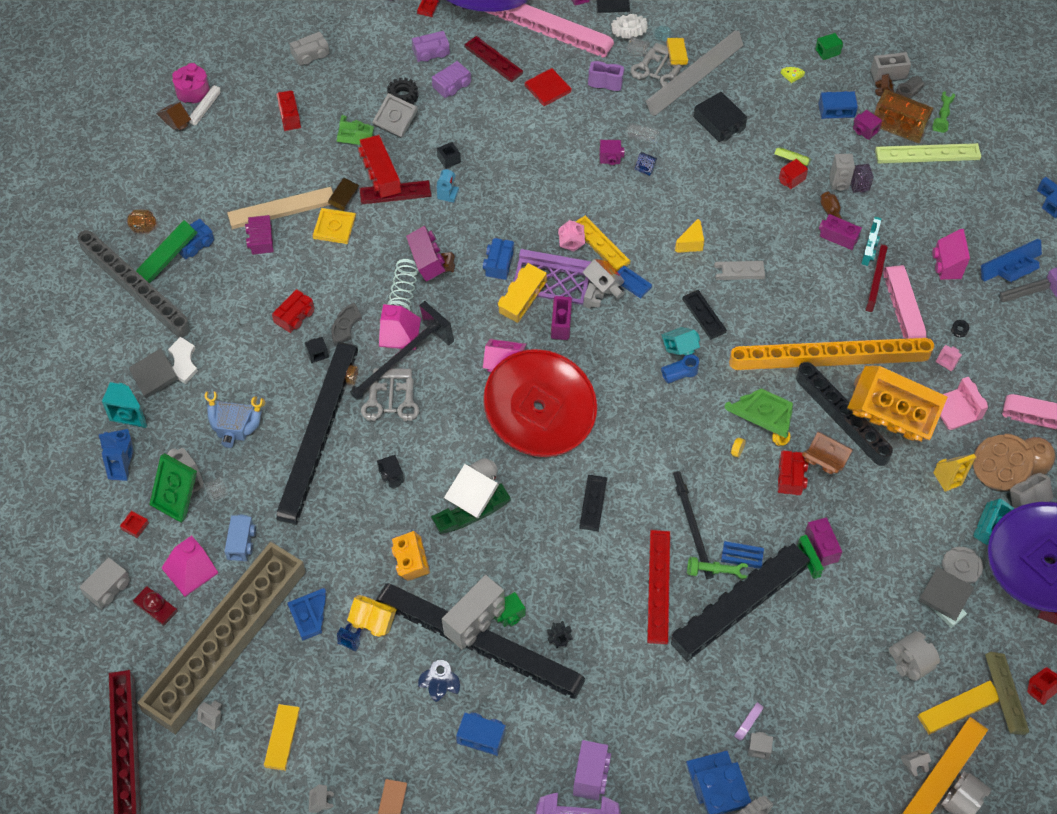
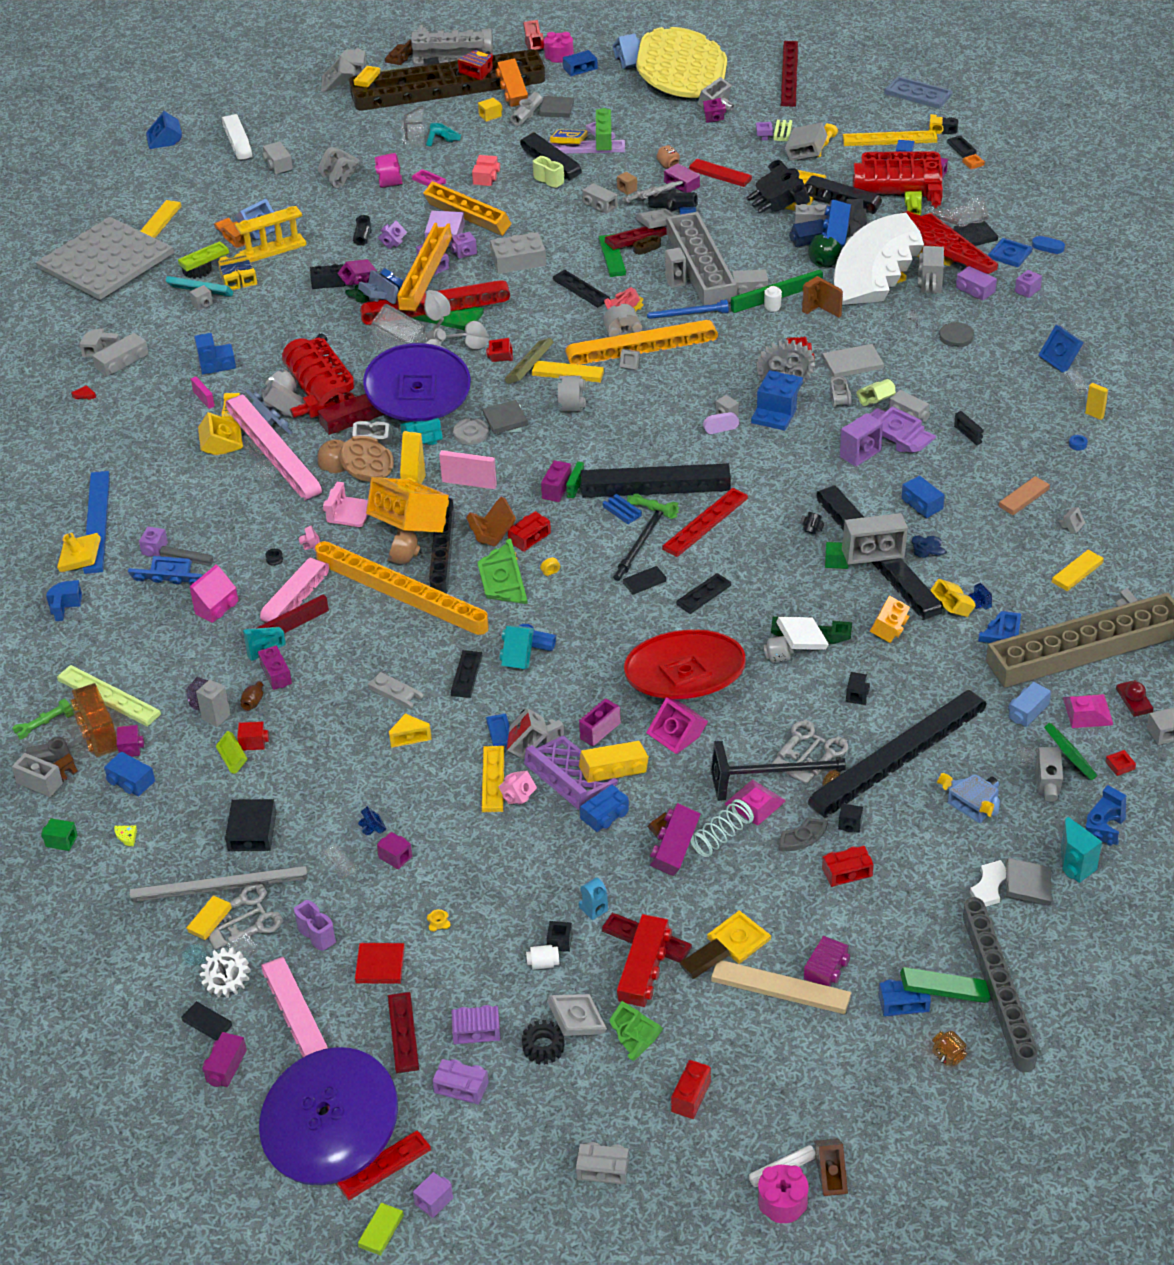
camera: 140 degrees left, 15 degrees down
(450, 135) = (542, 957): none -> white brick
(538, 125) = (437, 915): none -> yellow plate
(653, 486) = (644, 580): none -> black tile
(903, 497) = (468, 469): none -> bright pink tile

